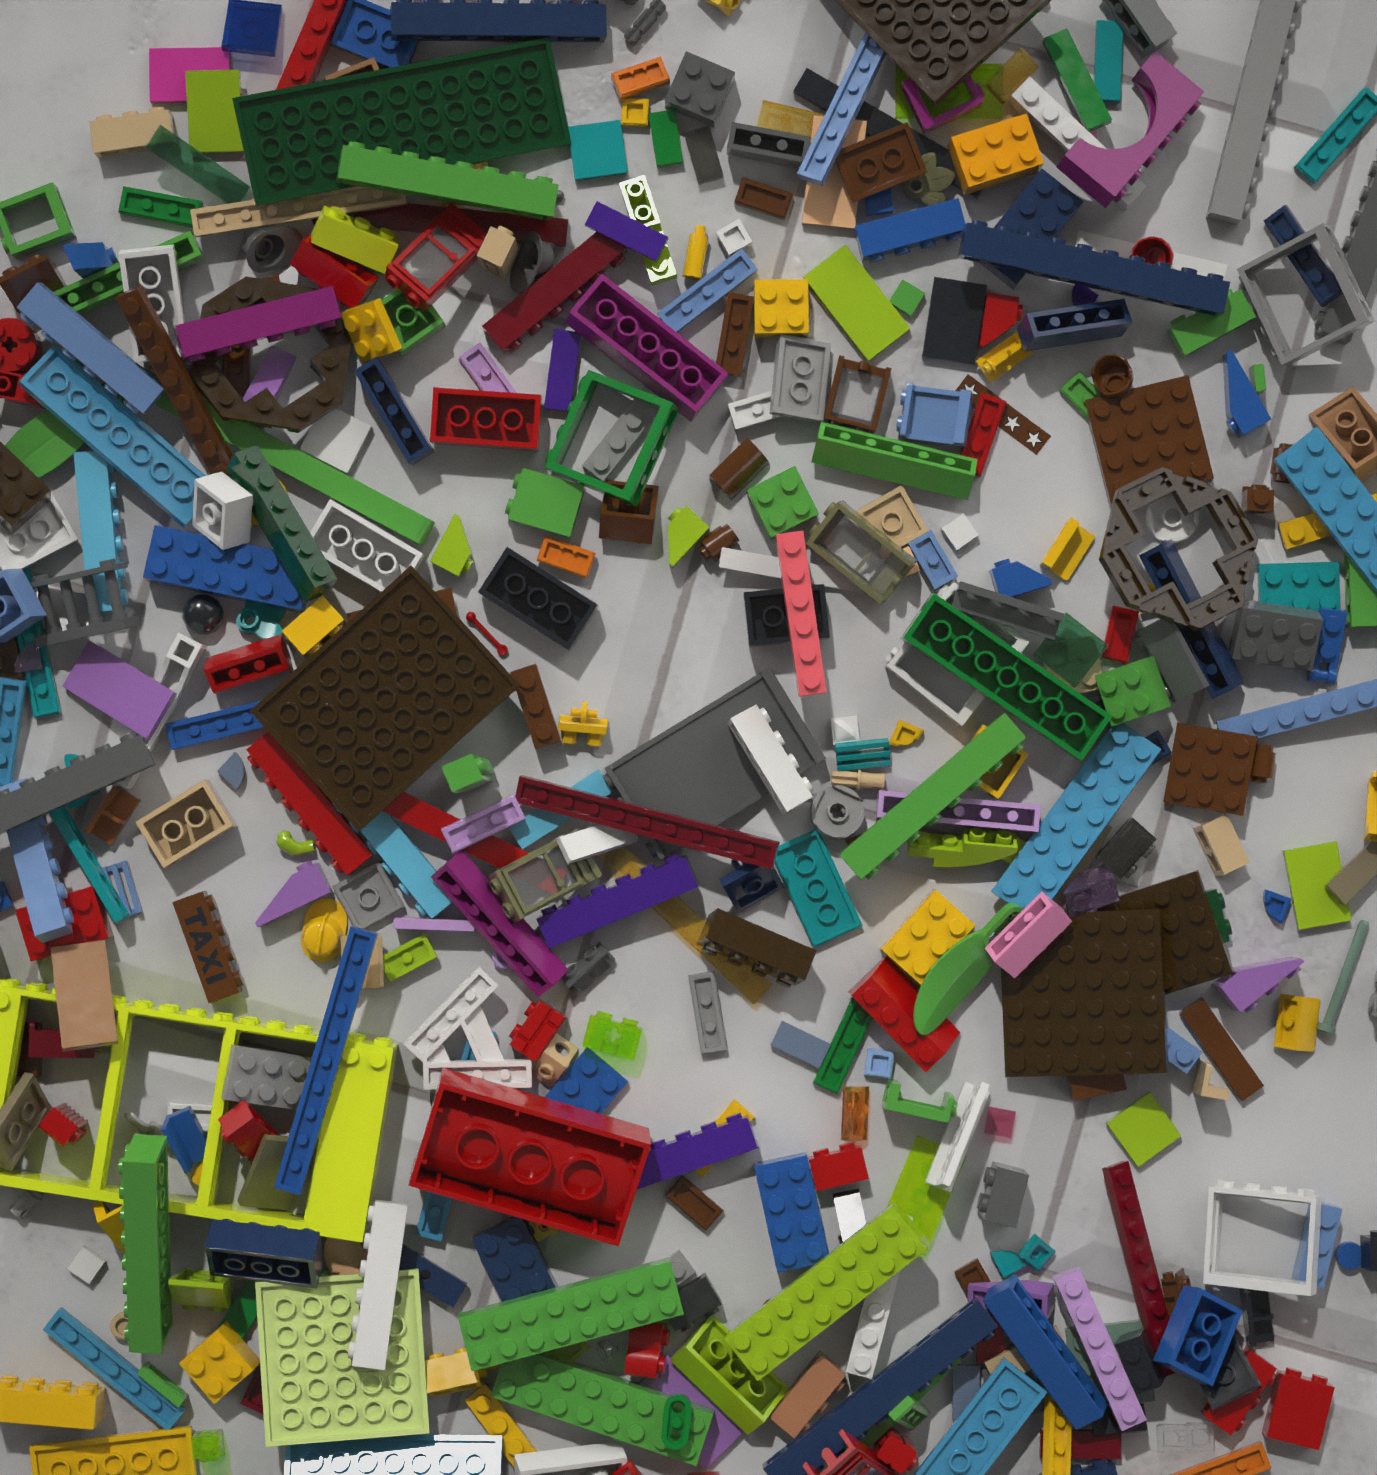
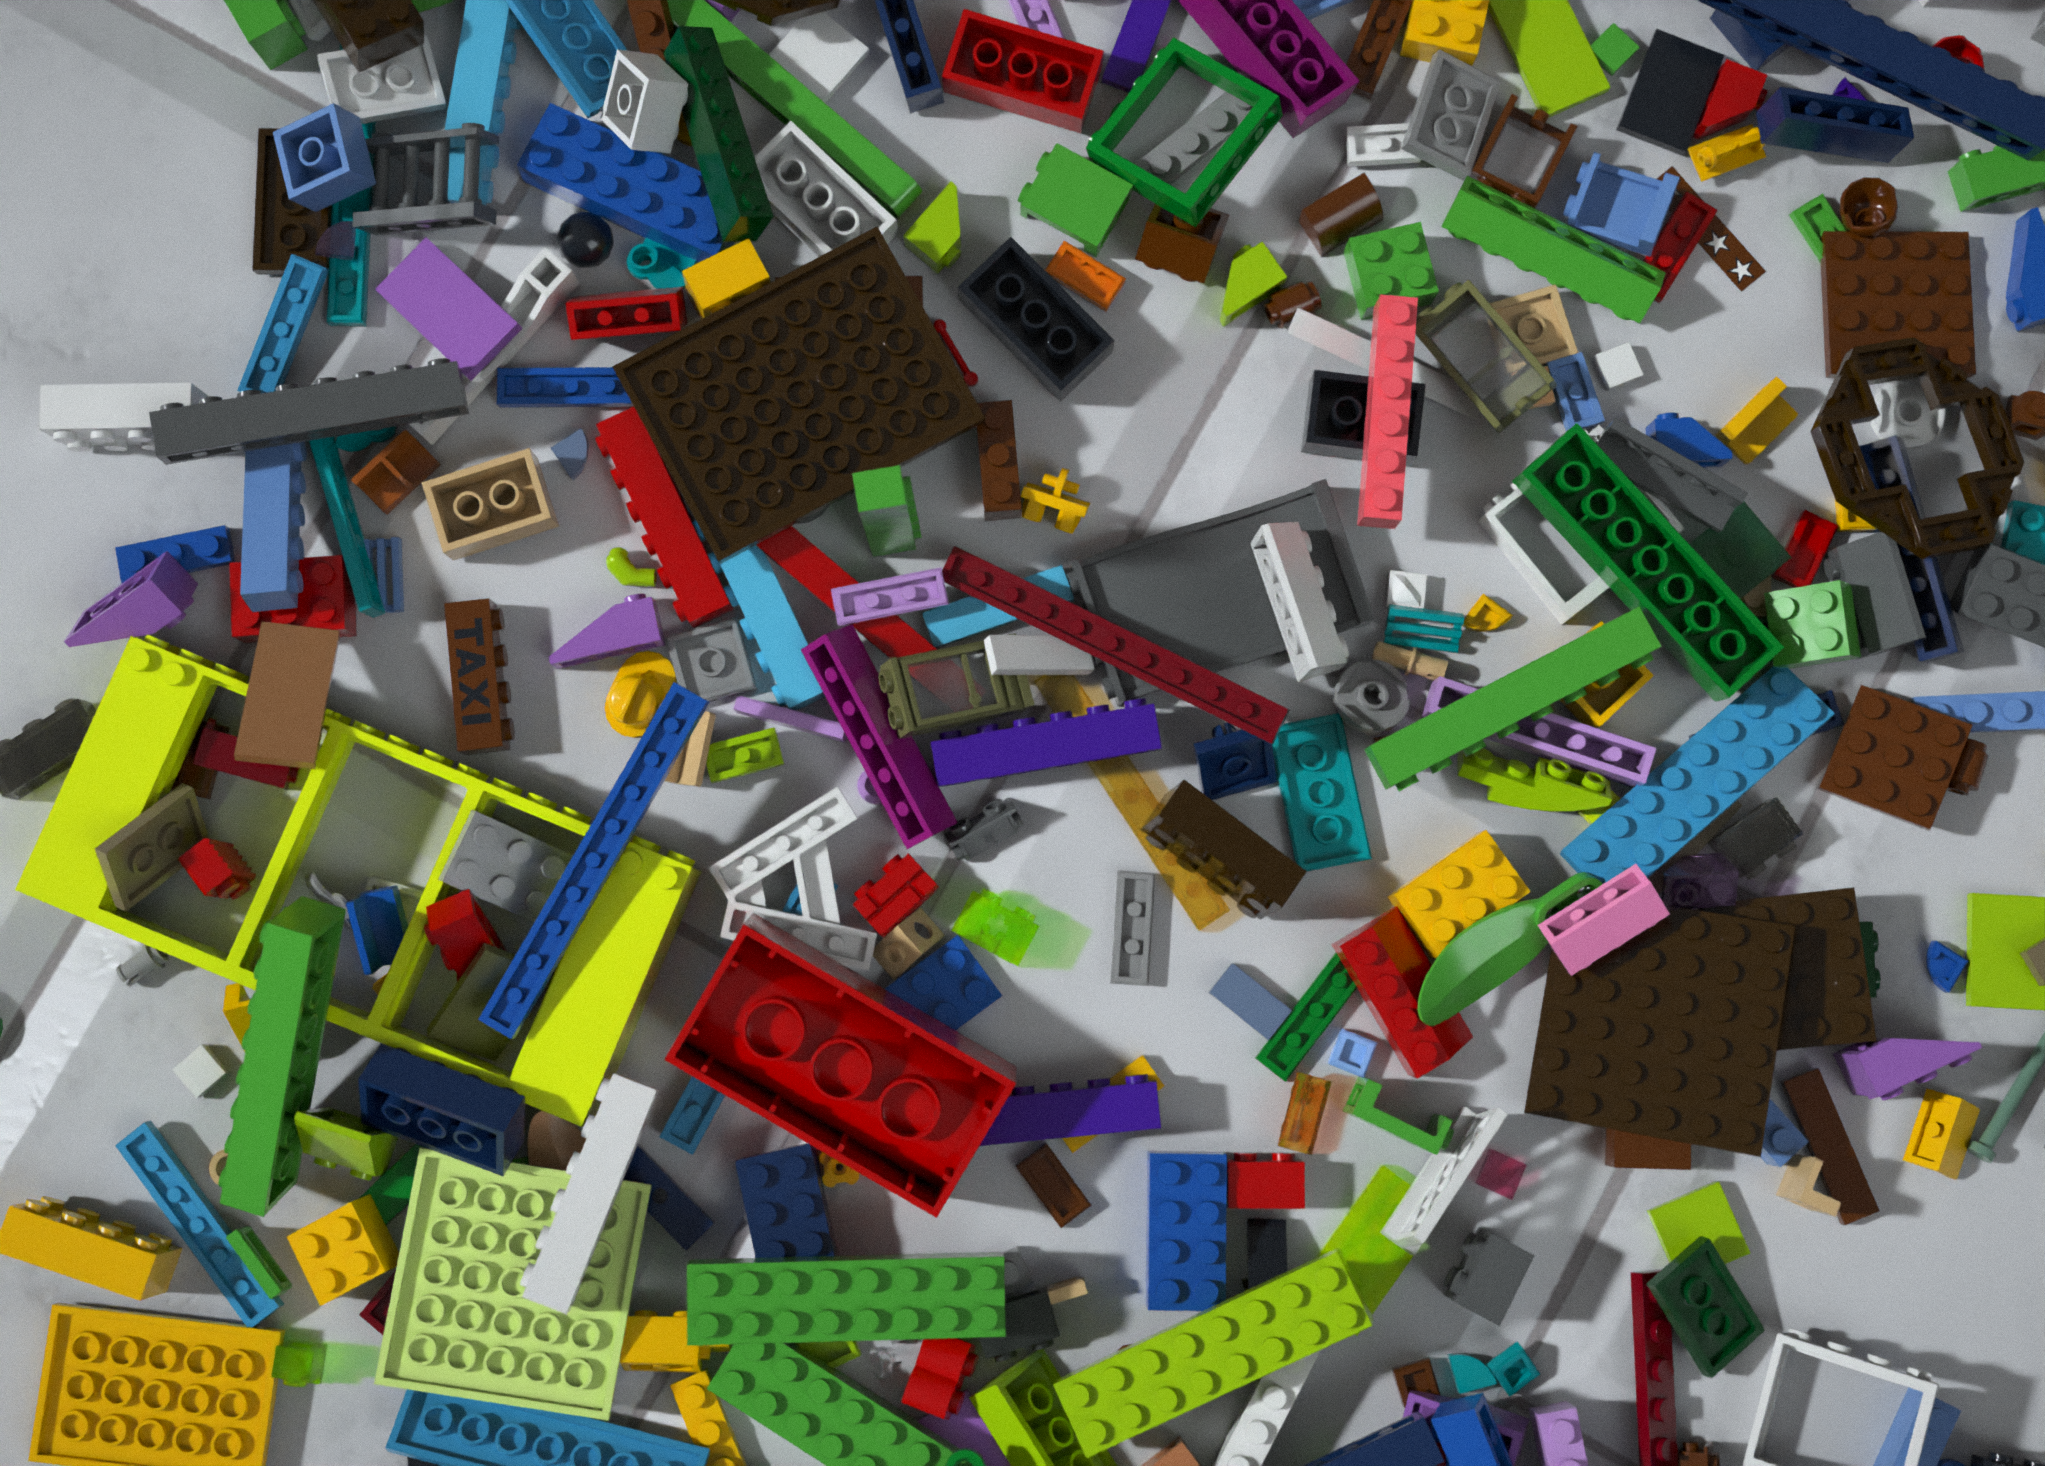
camera: 15 degrees right, 5 degrees down
(719, 1271) = (1066, 1289): none -> tan tile
(1156, 1179) = (1705, 1306): none -> dark green plate
(1221, 845) = (1887, 865): tan hinge -> none

